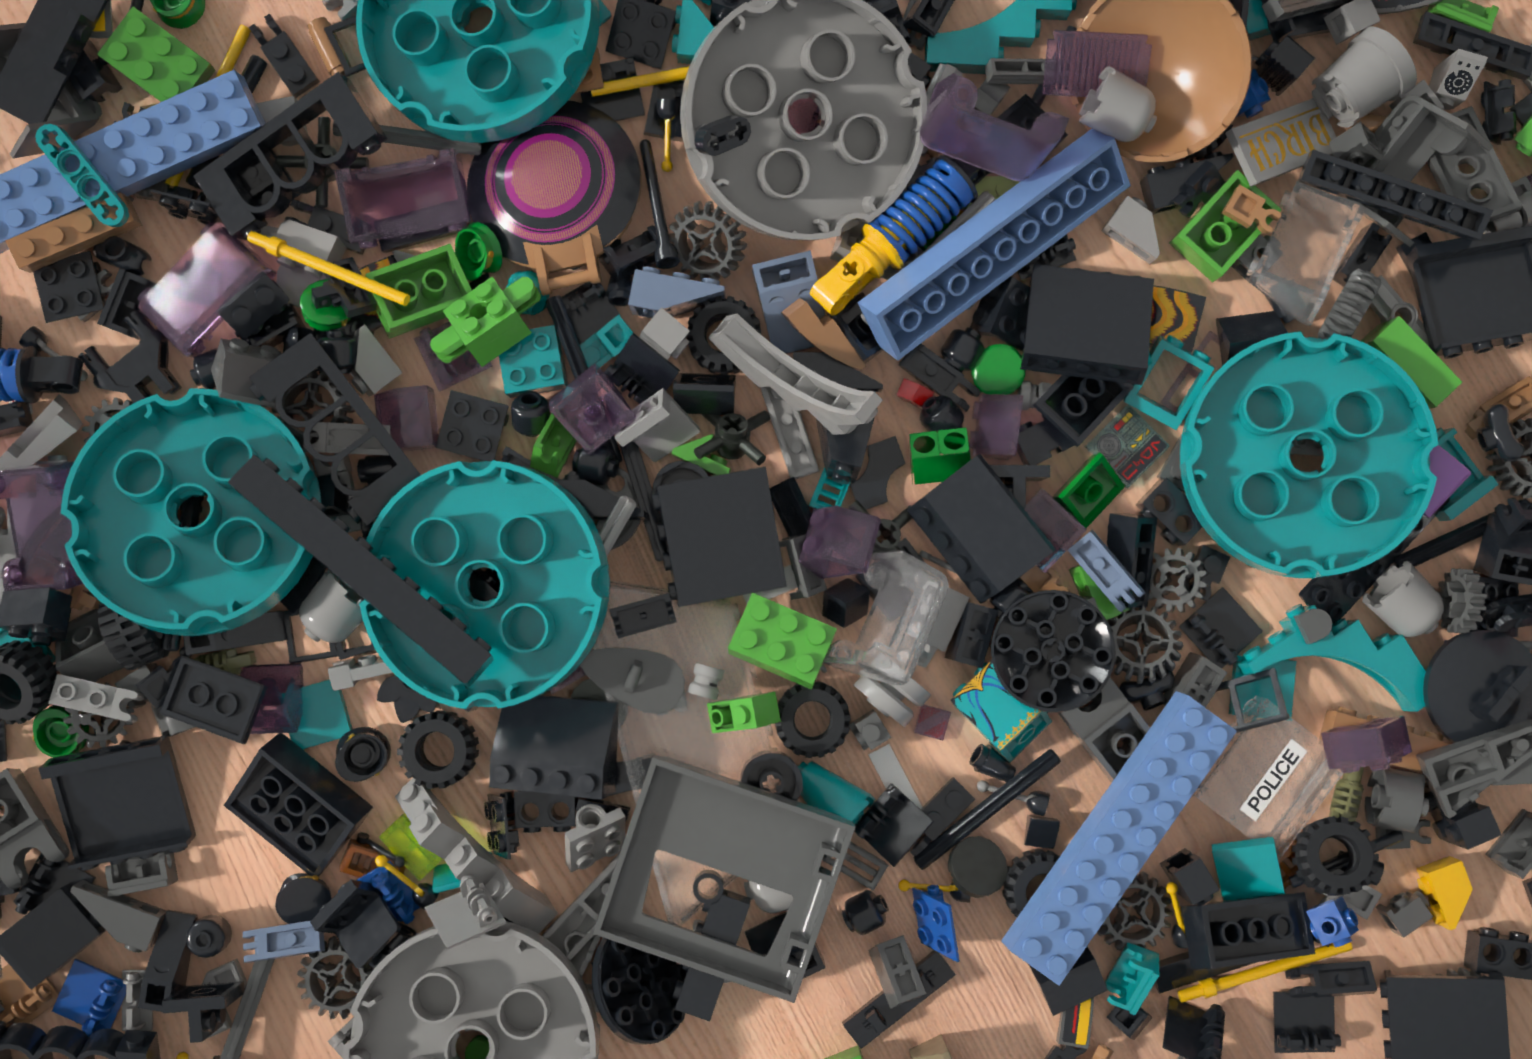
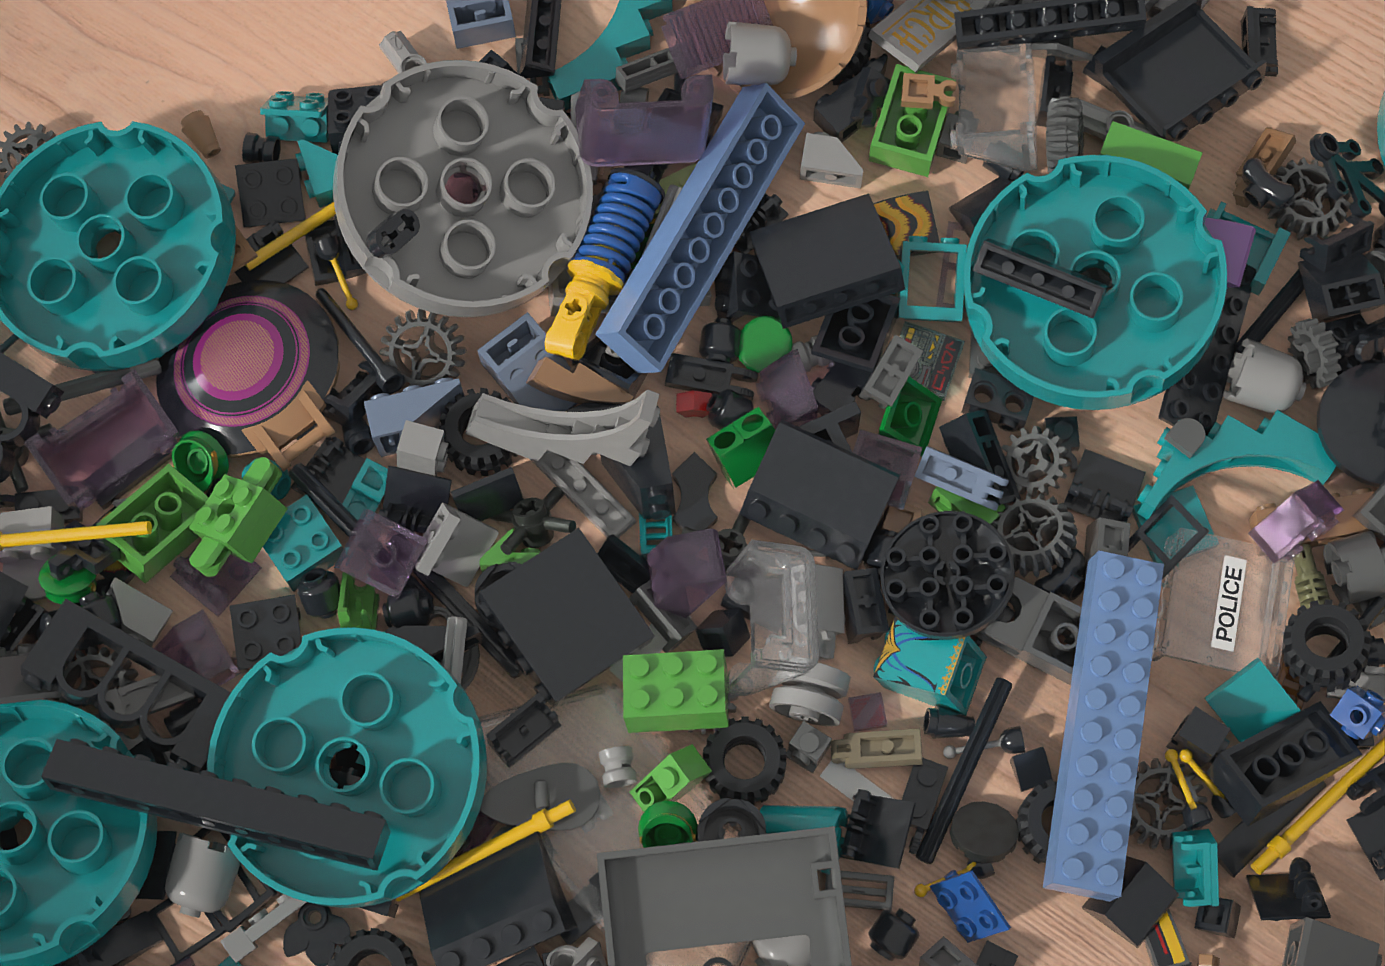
camera: 20 degrees left, 15 degrees down
(621, 698) = (540, 822): none -> yellow bar
(722, 752) = (667, 825): none -> green piece
(926, 758) = (878, 749): none -> dark tan hinge
(1094, 452) = (891, 372): none -> dark grey hinge
(1154, 937) = (1195, 813): none -> hinge
(1263, 434) = (1040, 277): none -> black slope

